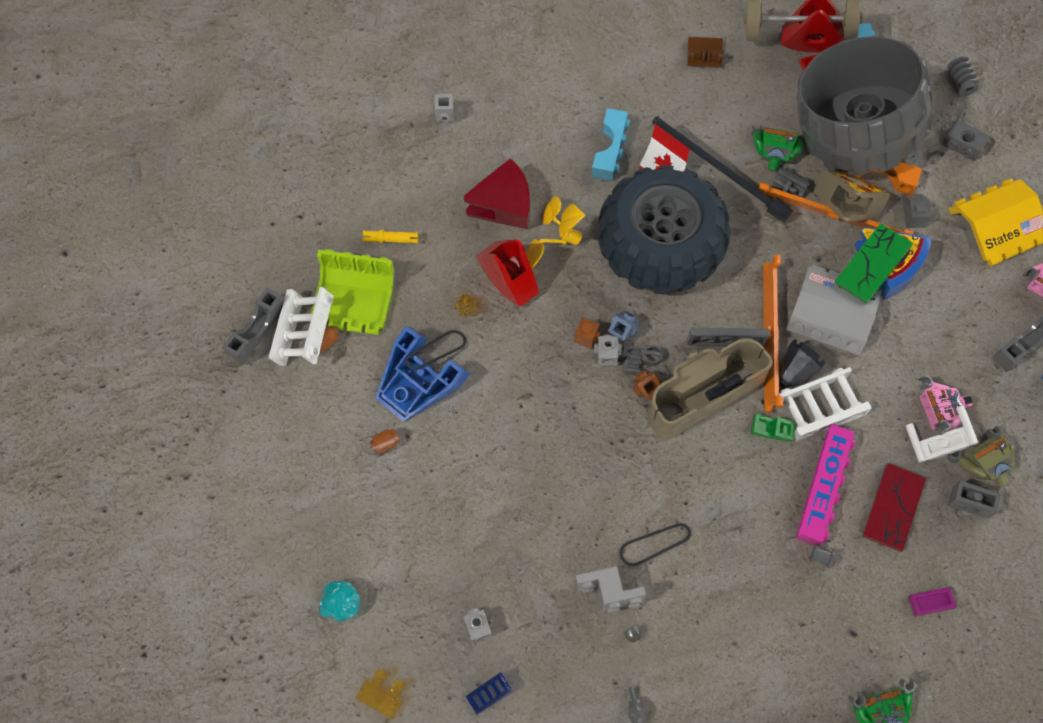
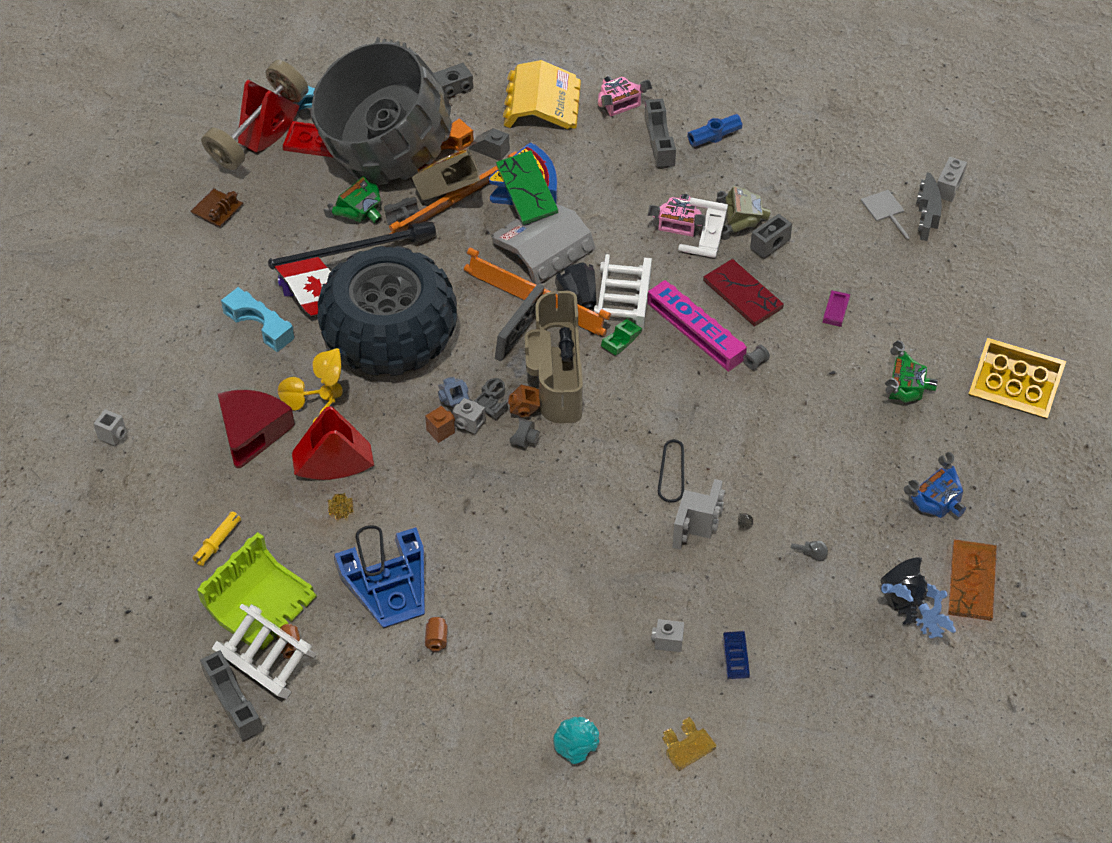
camera: 65 degrees left, 15 degrees down
(616, 403) = (525, 434): none -> dark grey piece

